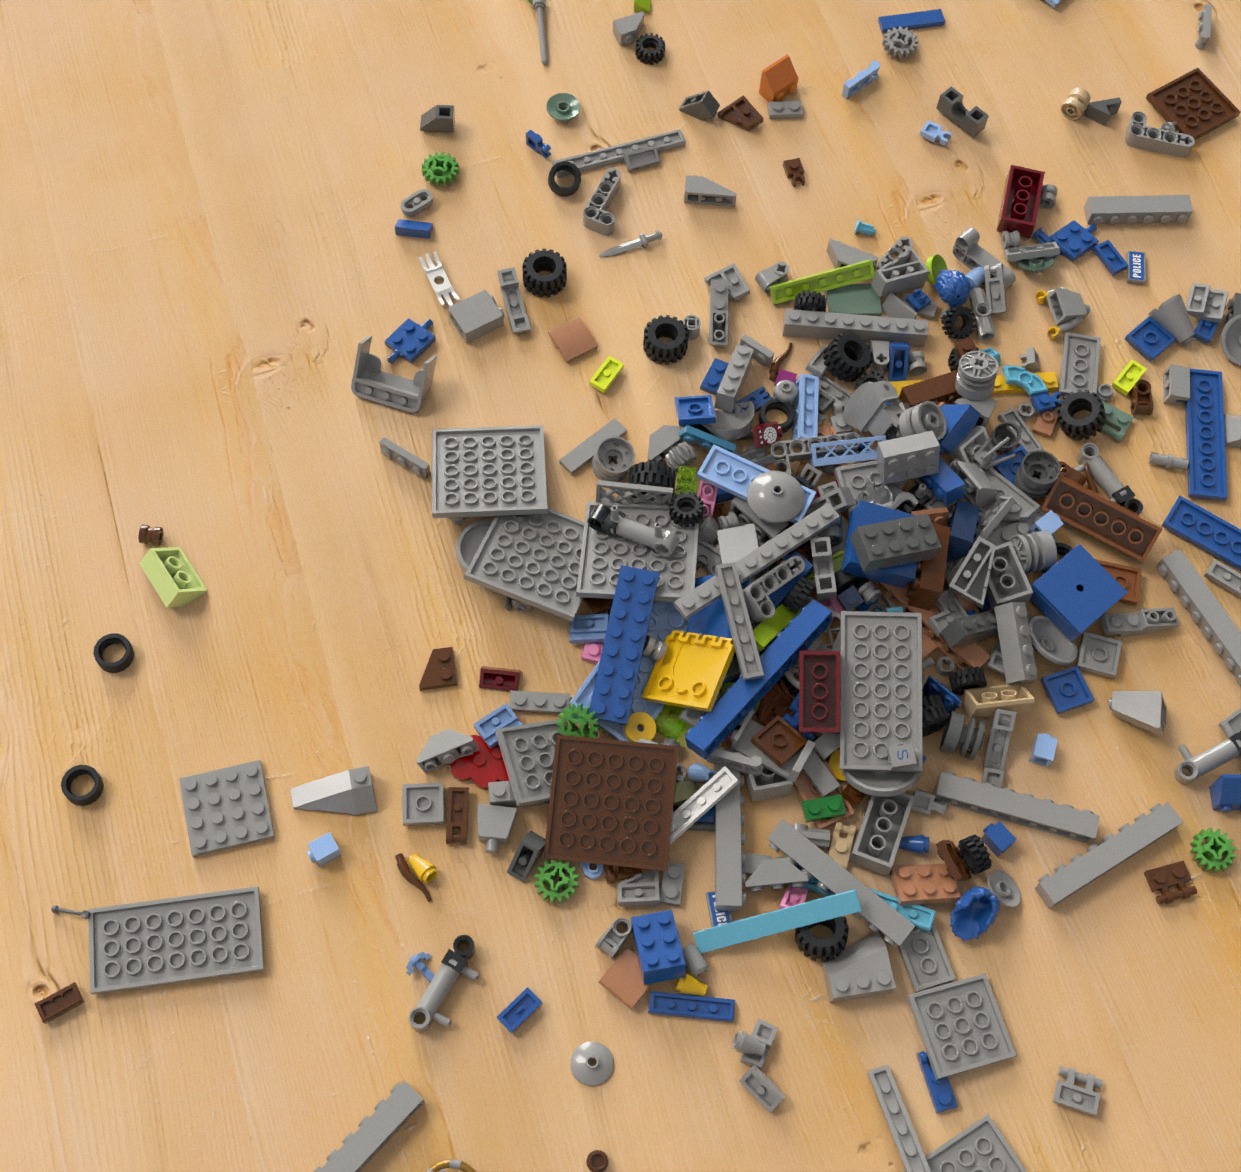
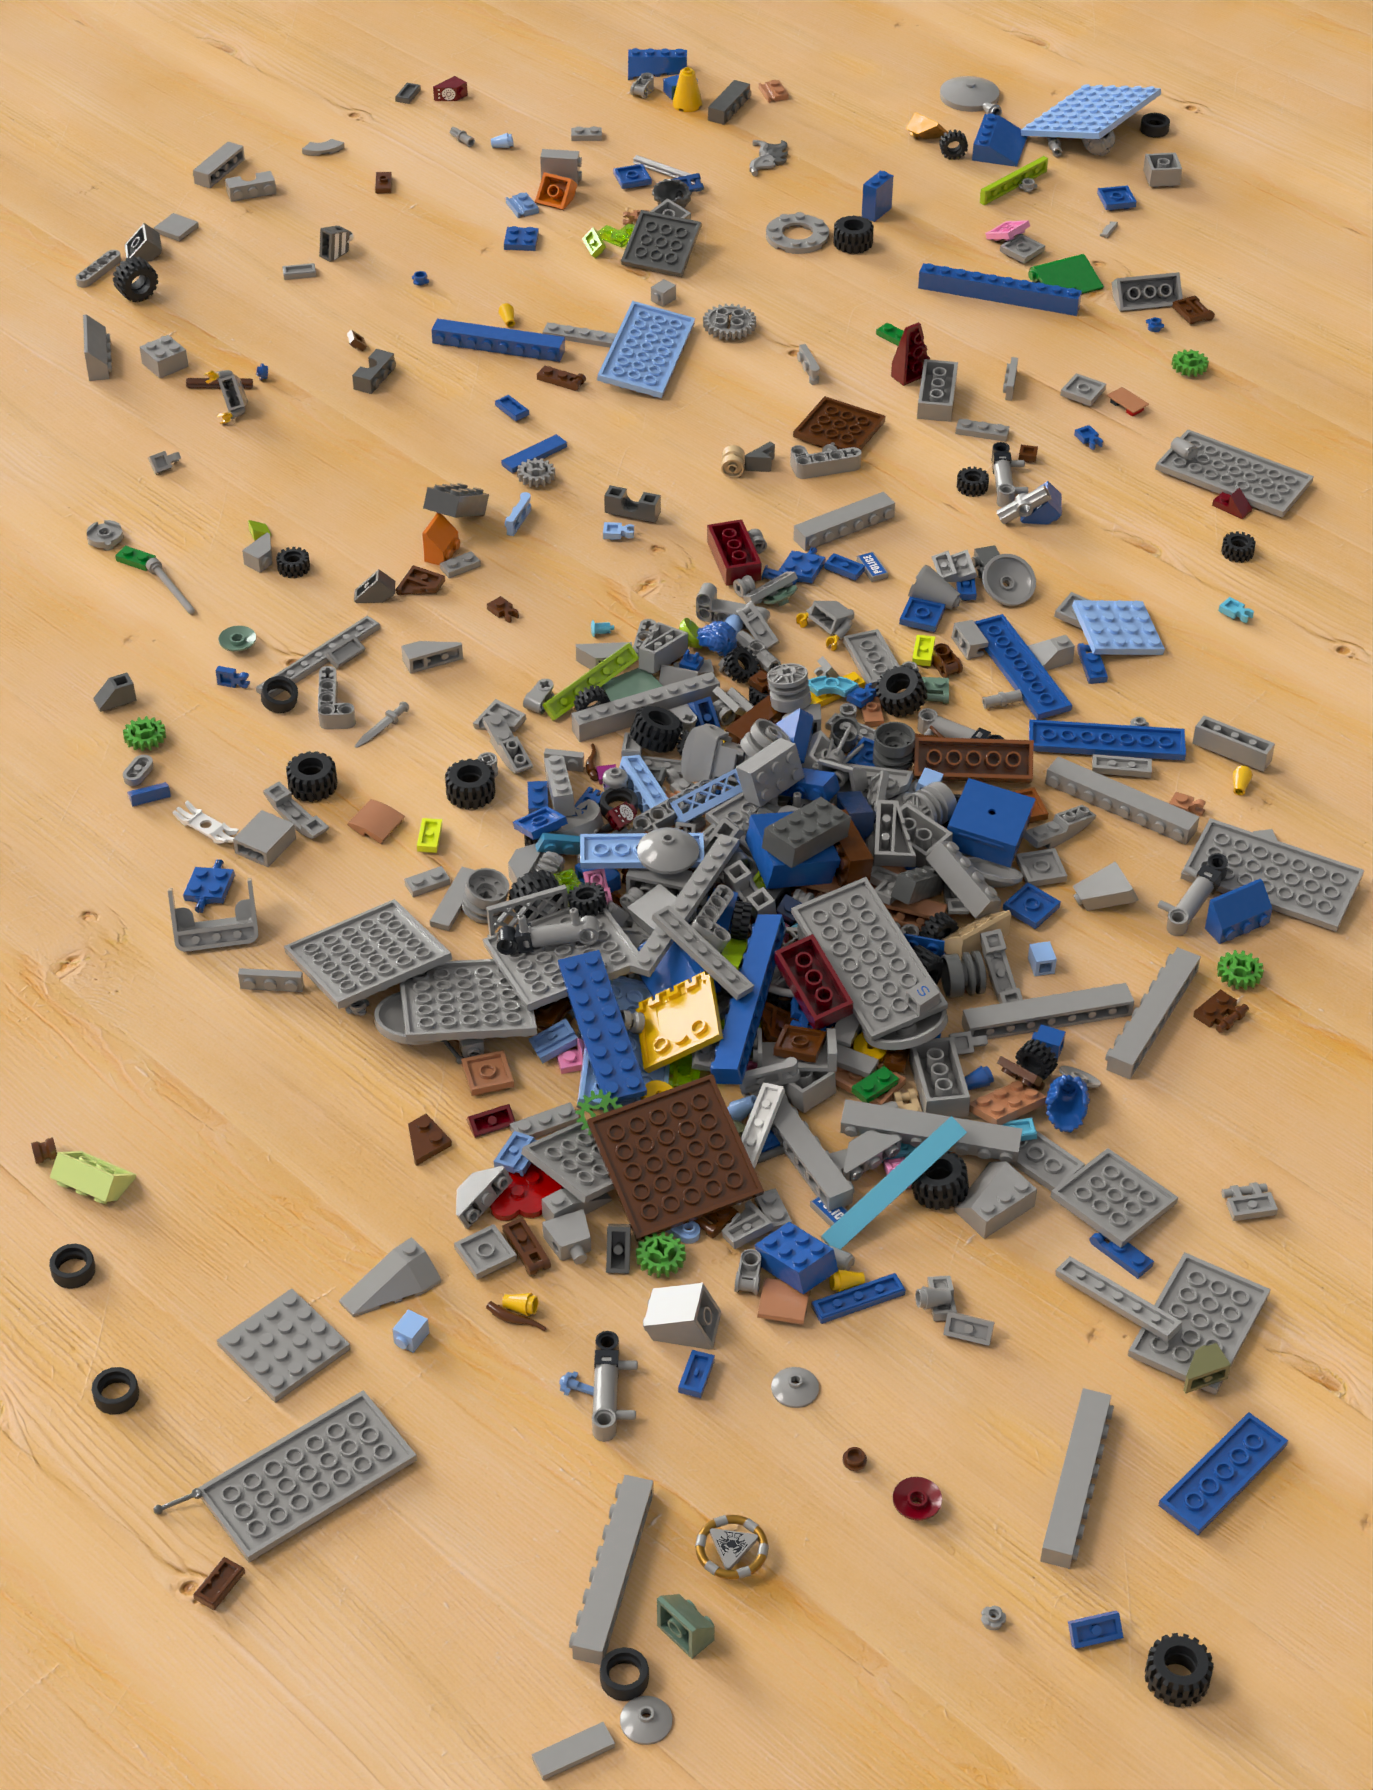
camera: 25 degrees left, 20 degrees down
(521, 631) = (487, 1072): none -> nougat plate
(538, 951) = (683, 1316): none -> light grey slope
(580, 418) = (427, 881): none -> light grey plate
(811, 47) = (456, 500): none -> dark grey brick
(933, 358) = (734, 700): none -> light grey slope

